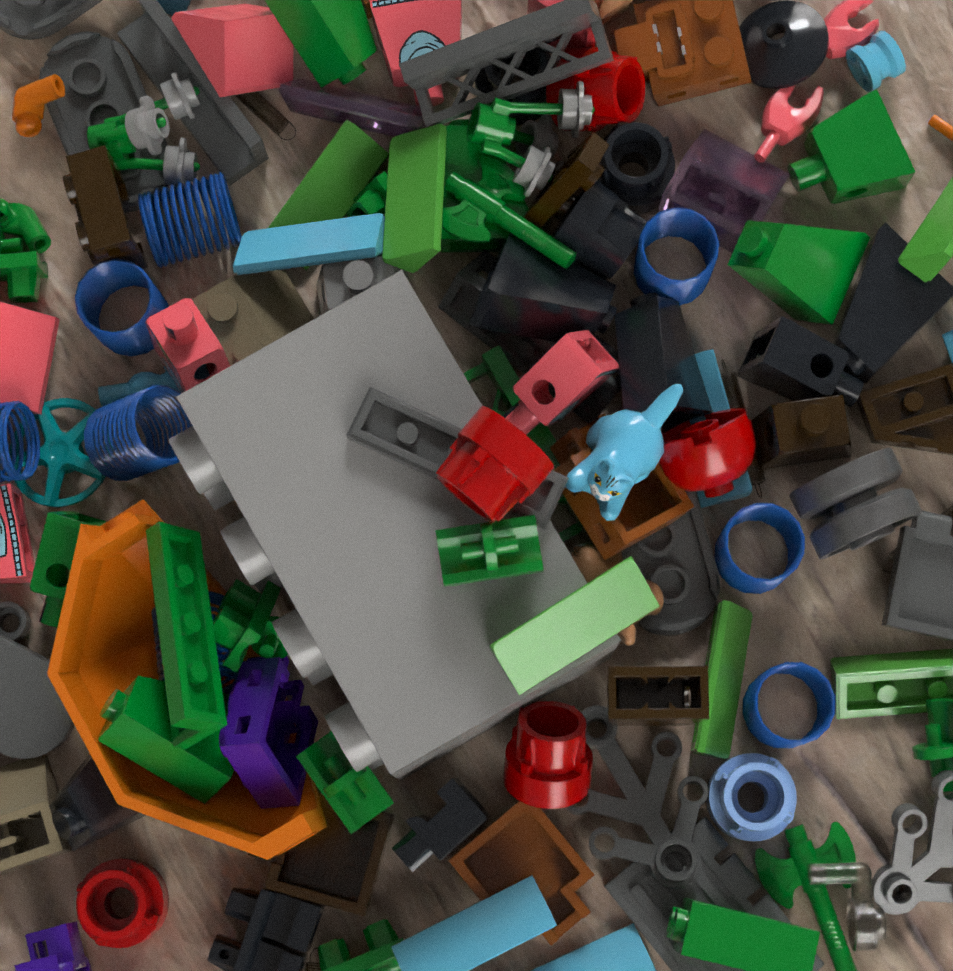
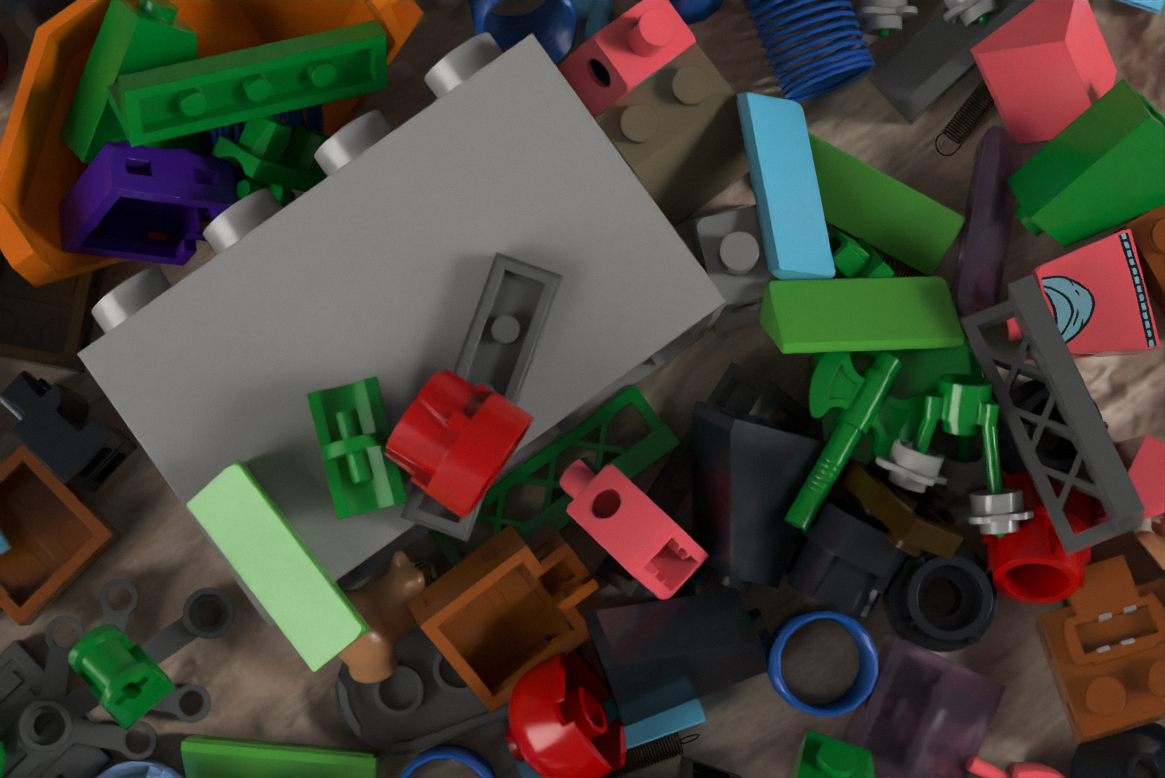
camera: 80 degrees right, 5 degrees up
(351, 794) = (69, 315): green hips -> none
(548, 756) = (153, 557): red piece -> none
(623, 452) = (543, 615): medium azure animal -> none
(642, 792) = (119, 674): none -> green piece
(657, 695) = (239, 683): dark brown torso -> none

